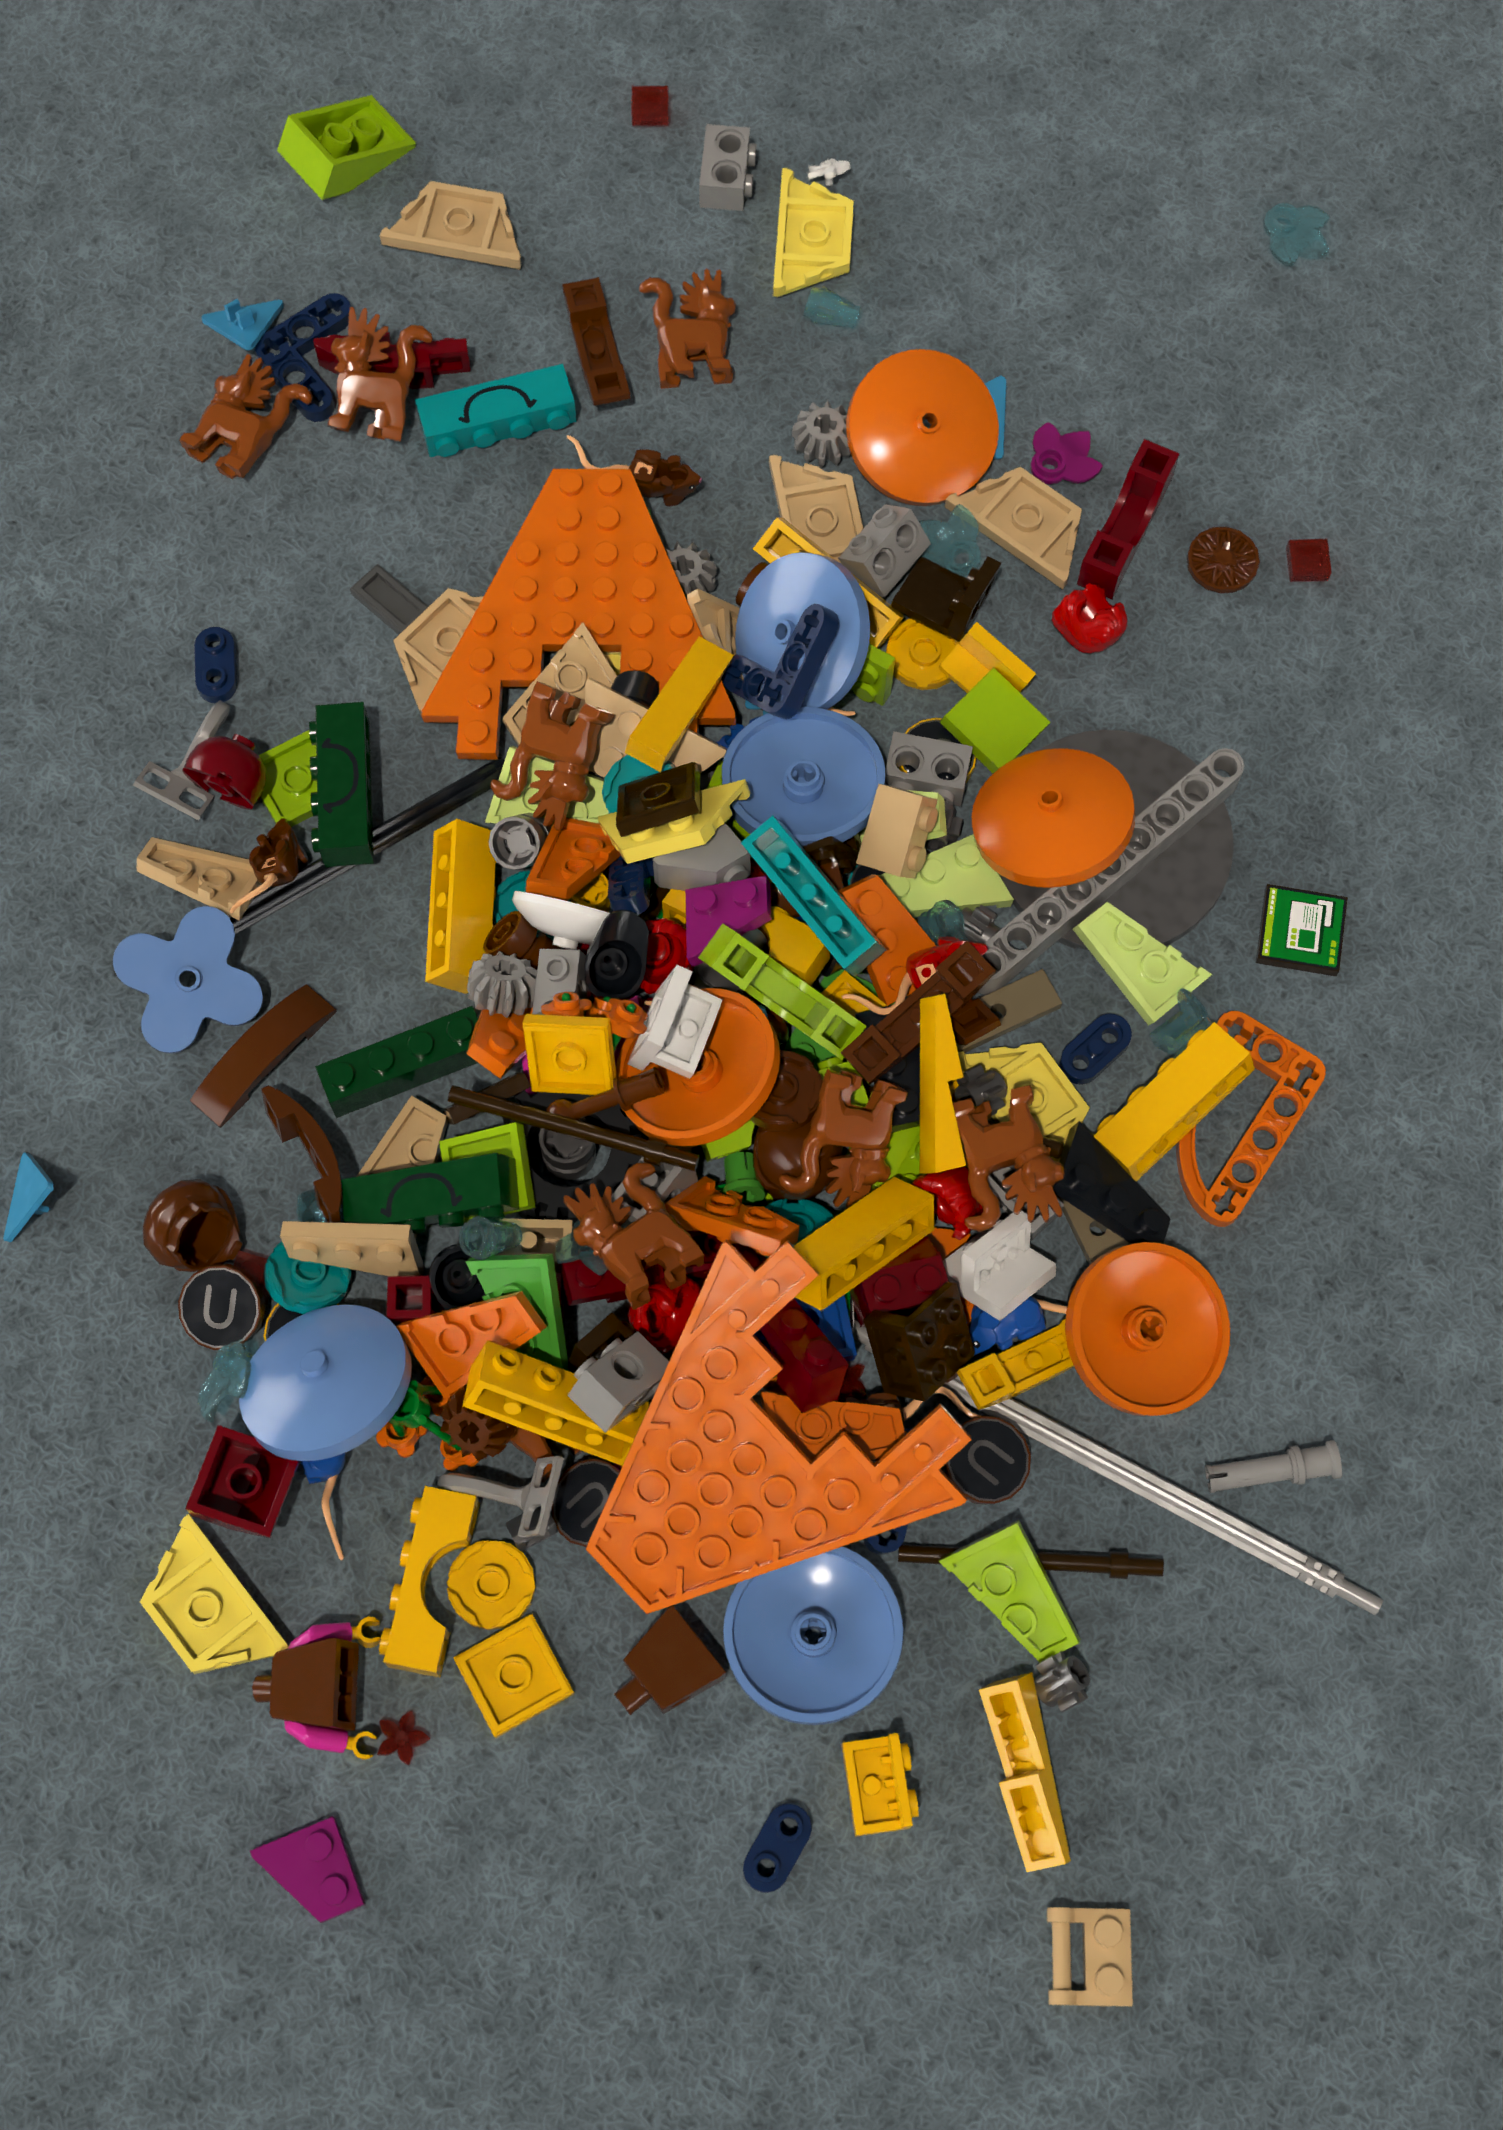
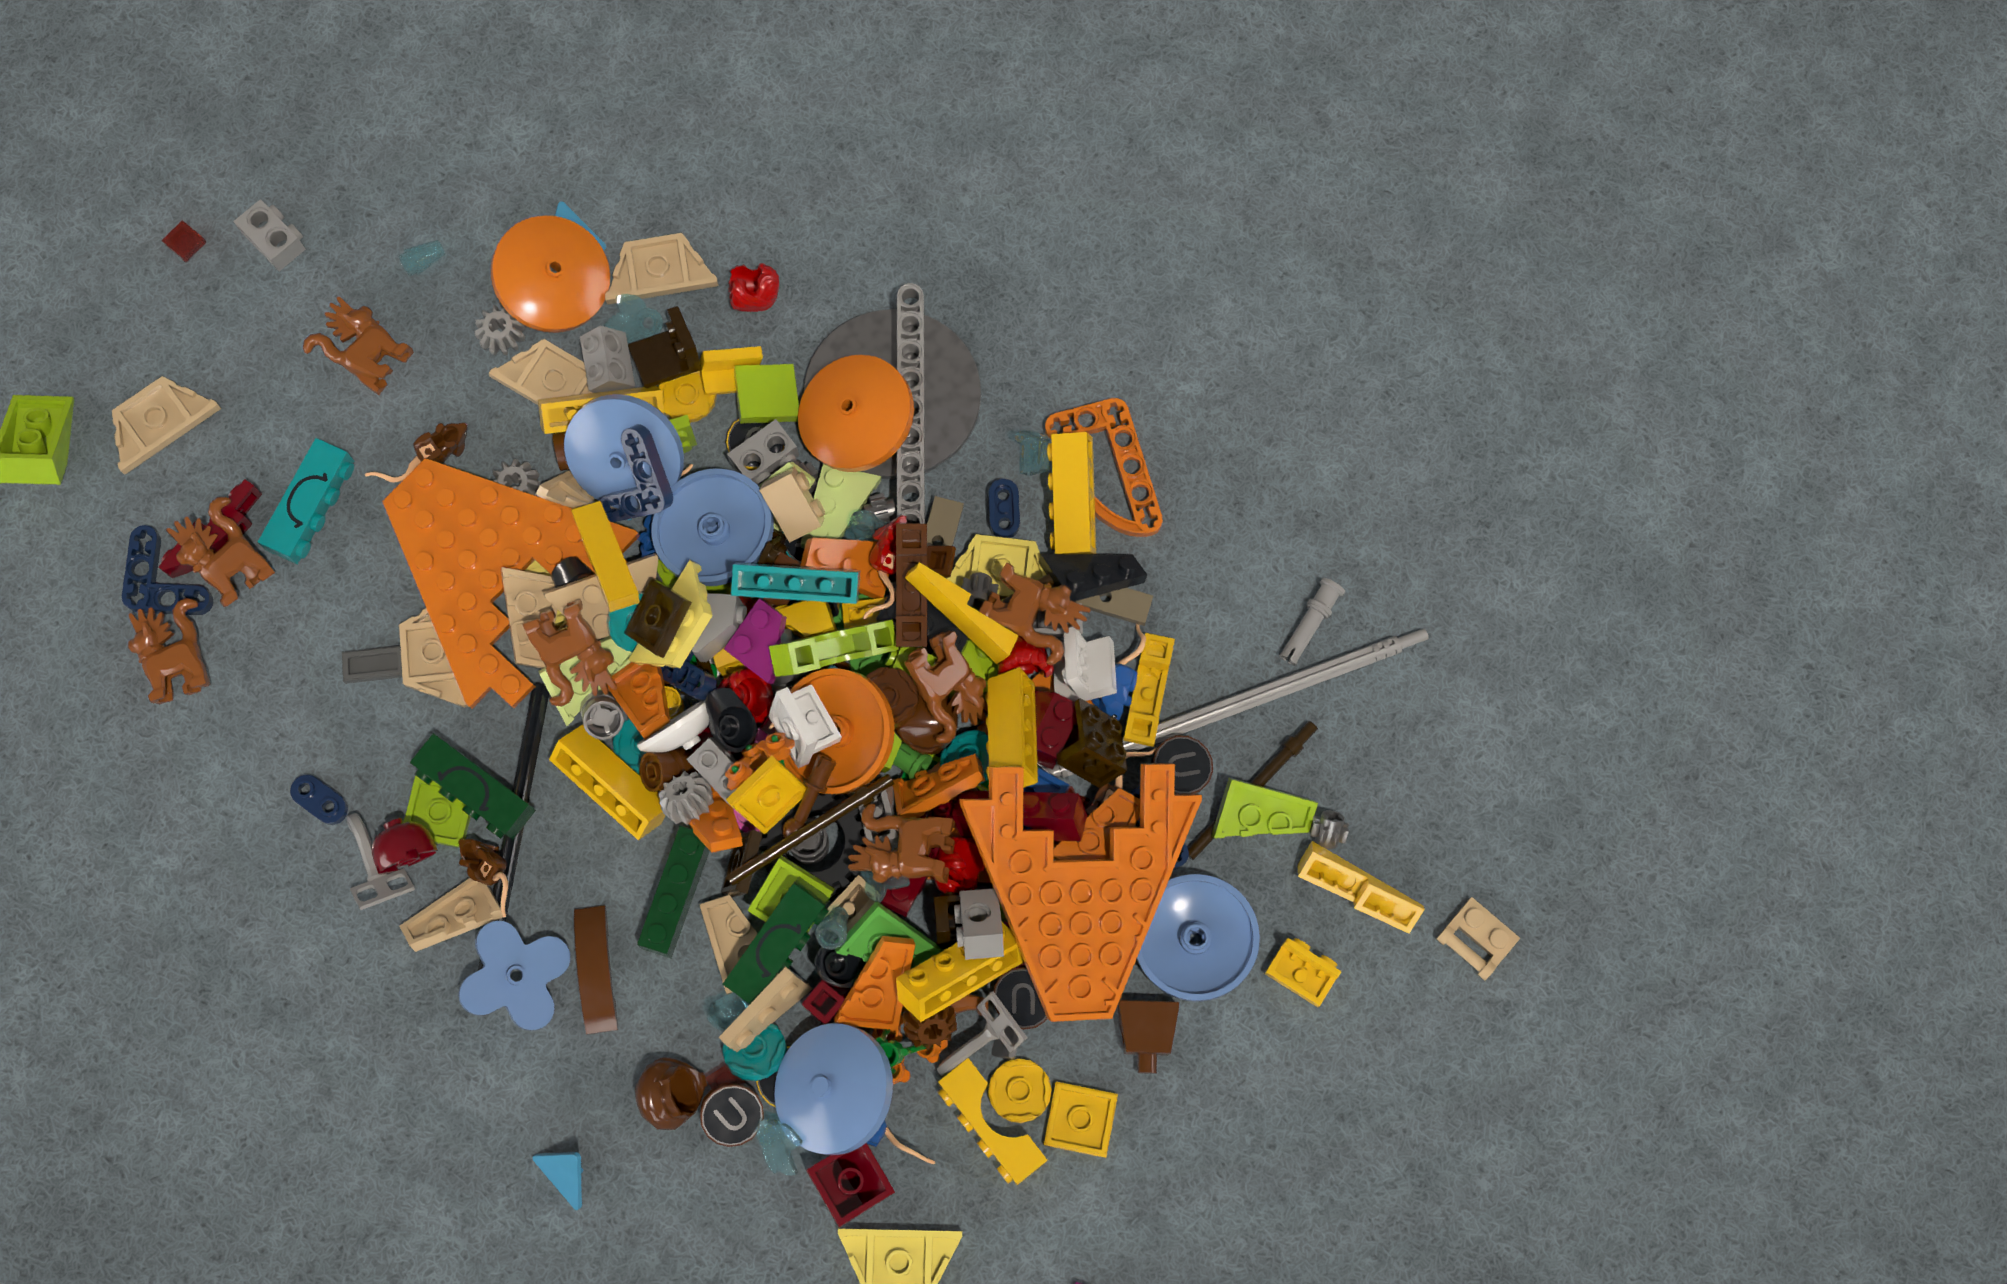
camera: 50 degrees left, 5 degrees up
(244, 324) = (101, 599): dark azure piece -> none
(292, 1121) = (653, 984): reddish brown slope -> none
(317, 1686) = (999, 1233): reddish brown torso -> none
(401, 1738) = (1063, 1209): clear red plant -> none
(595, 342) = (316, 408): reddish brown slope -> none
(777, 1847) = (1290, 1053): dark blue plate -> none
(811, 235) = (361, 225): light yellow wing -> none
(829, 169) = (327, 178): white plant -> none
(1066, 453) = (636, 210): magenta plate -> none
(1130, 517) = (711, 213): dark red arch -> none
(1137, 962) = (978, 443): yellowish green wing -> none
(1180, 1322) = (1184, 619): orange dish -> none
(1223, 559) = (781, 185): reddish brown wheel -> none
(1301, 930) = (1033, 341): tile -> none
(1308, 560) = (825, 141): clear red plate -> none

